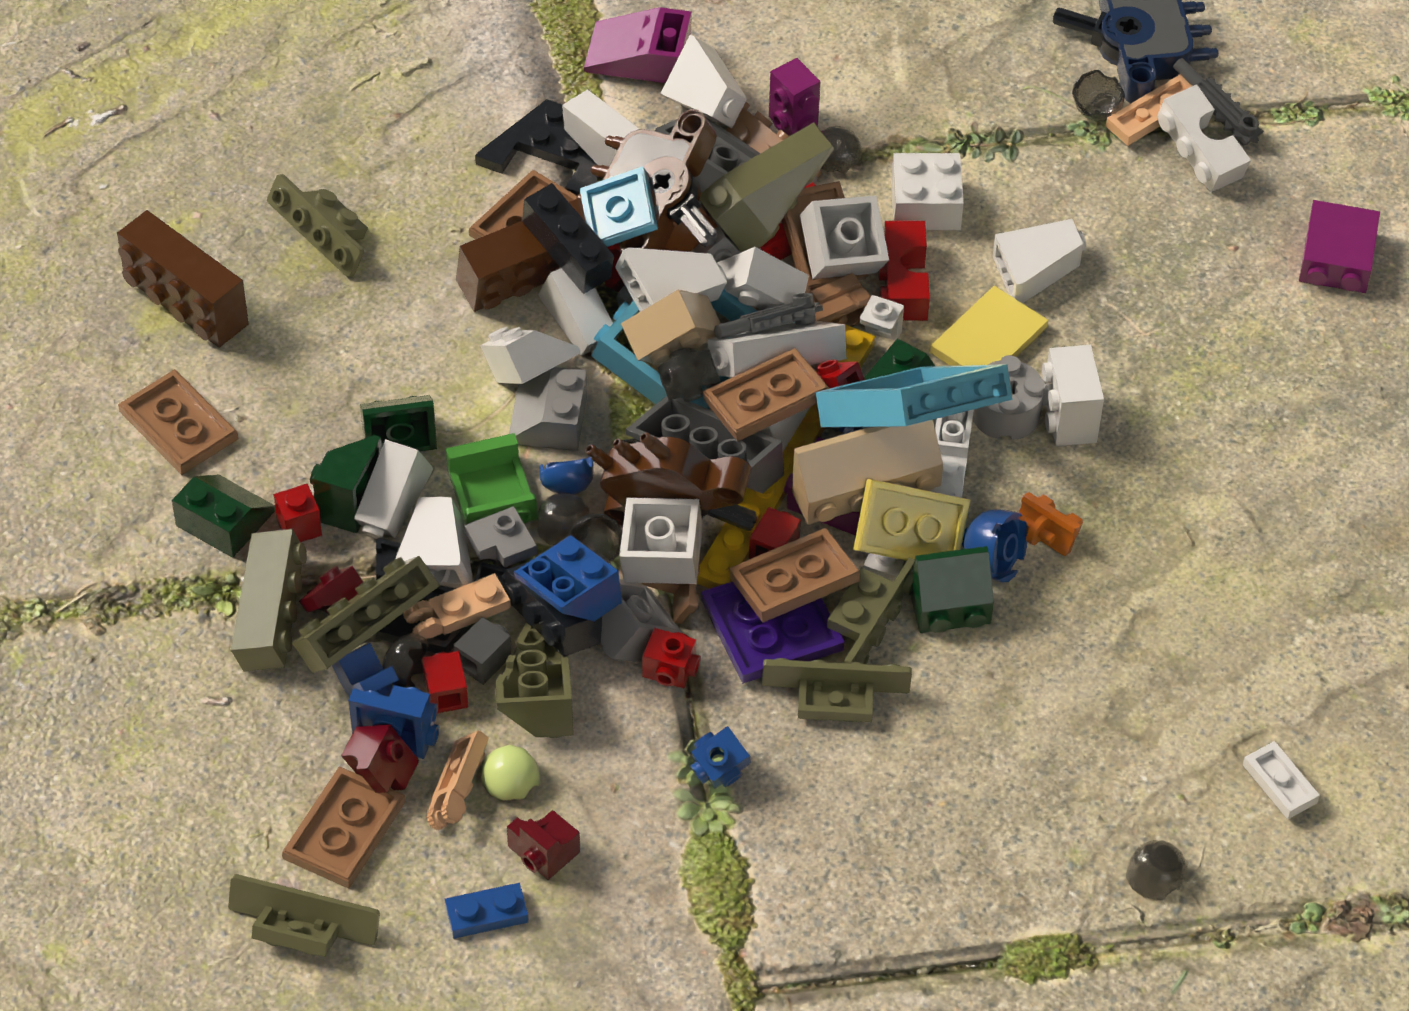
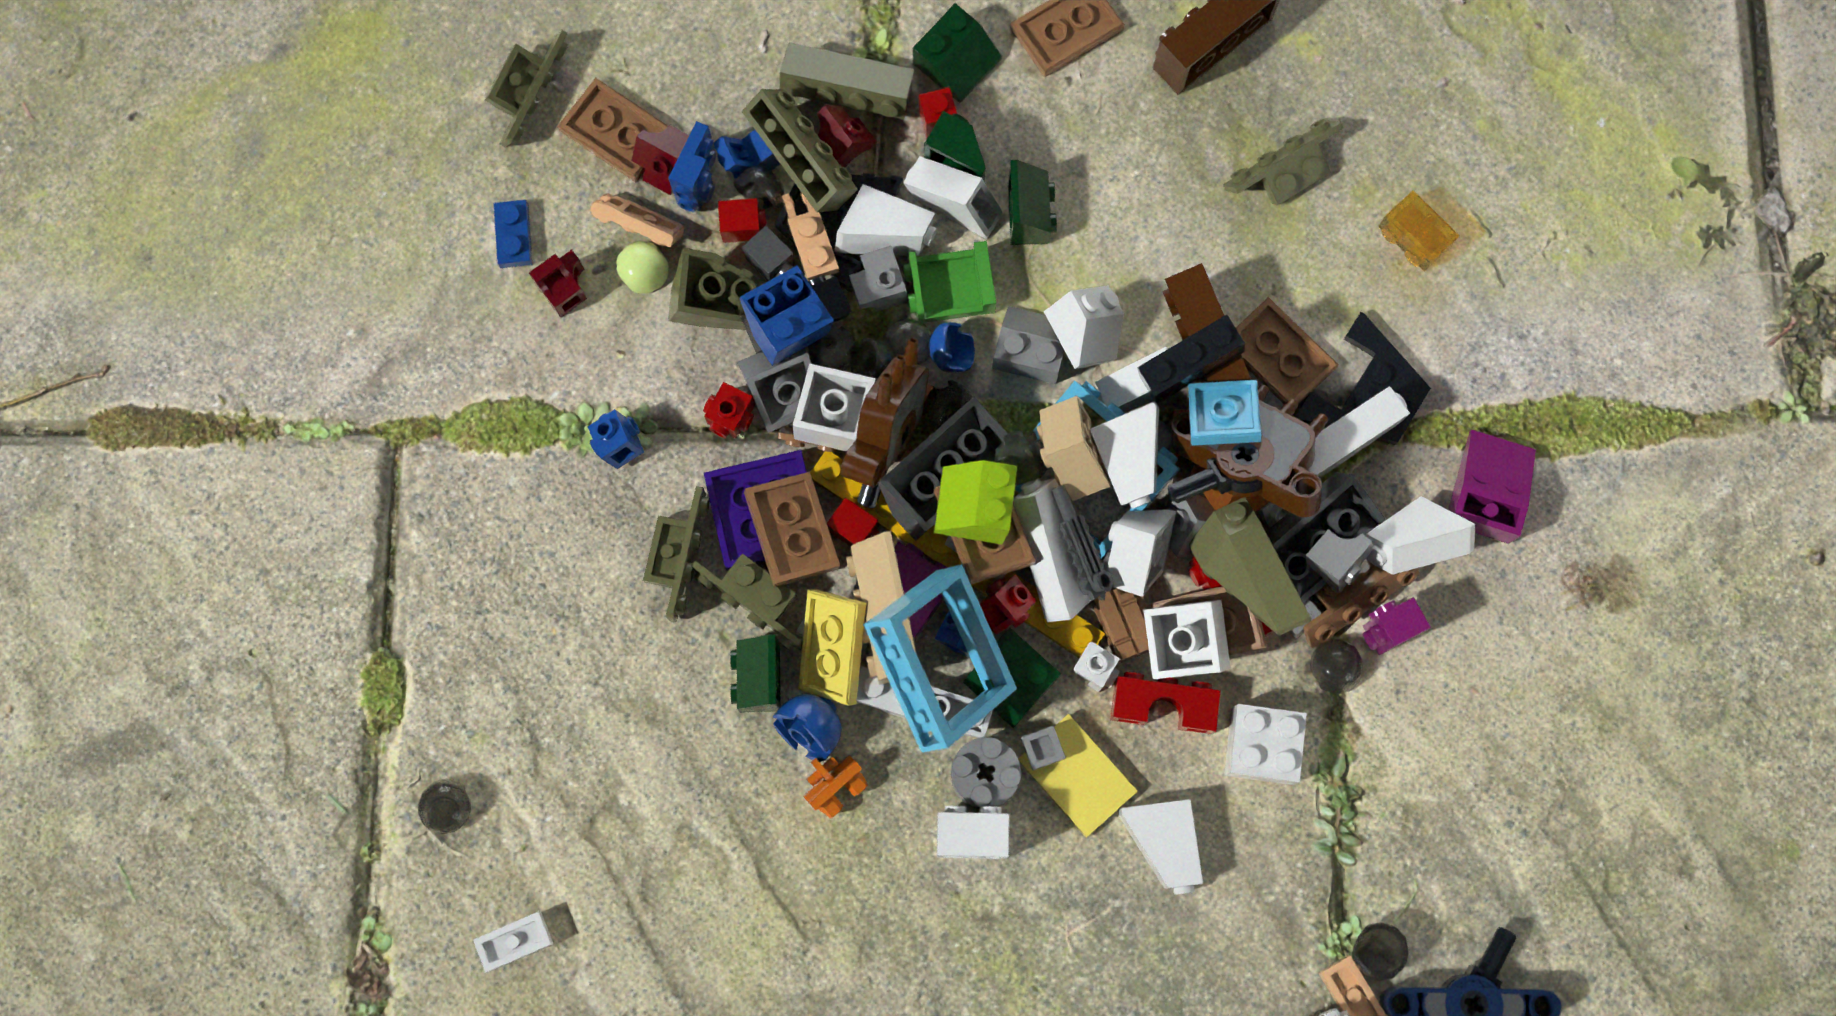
camera: 100 degrees right, 25 degrees up
(384, 116) = (1418, 231): none -> clear yellow brick
(744, 129) = (1338, 558): none -> light grey brick
(747, 386) = (976, 501): none -> lime slope
(972, 350) = (1043, 748): none -> light grey plate

